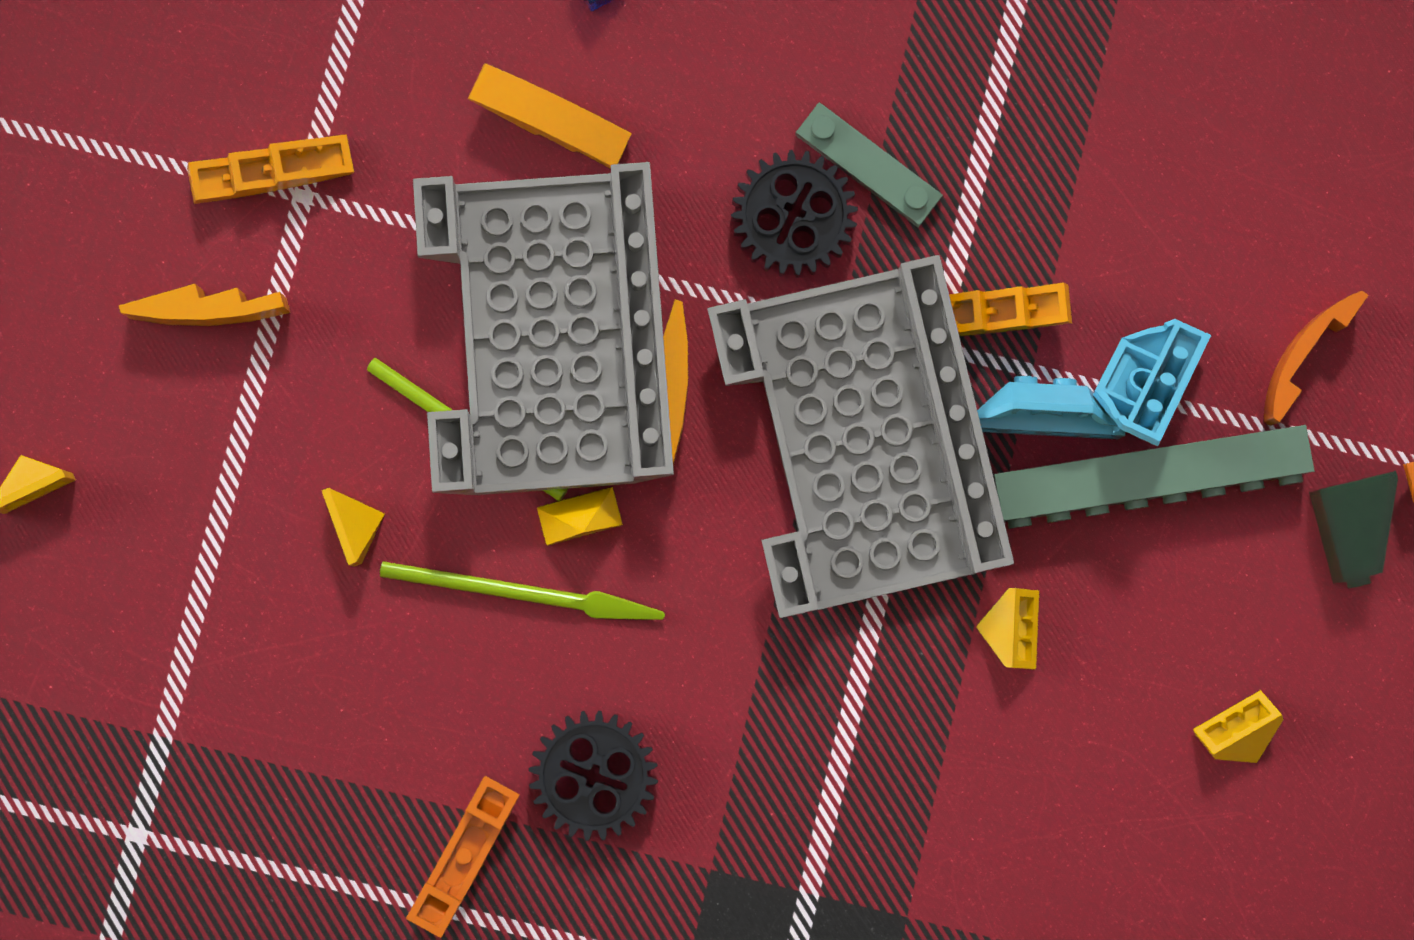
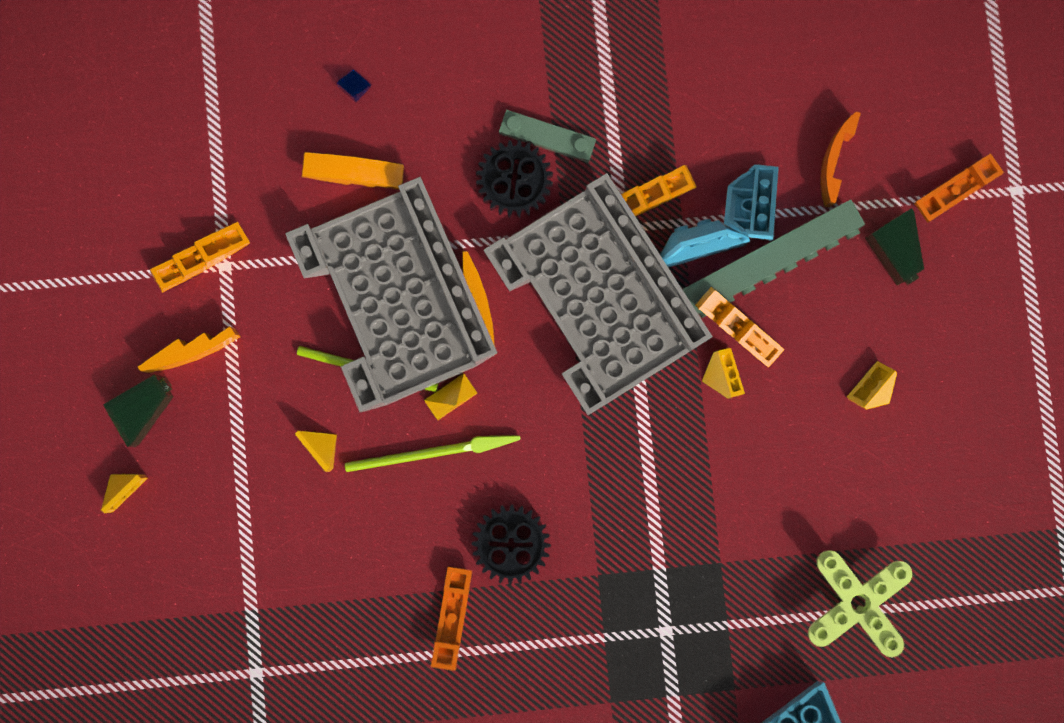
camera: 20 degrees left, 0 degrees up
(99, 369) = (139, 408): none -> clear green slope
(1062, 563) = (739, 327): none -> light orange slope

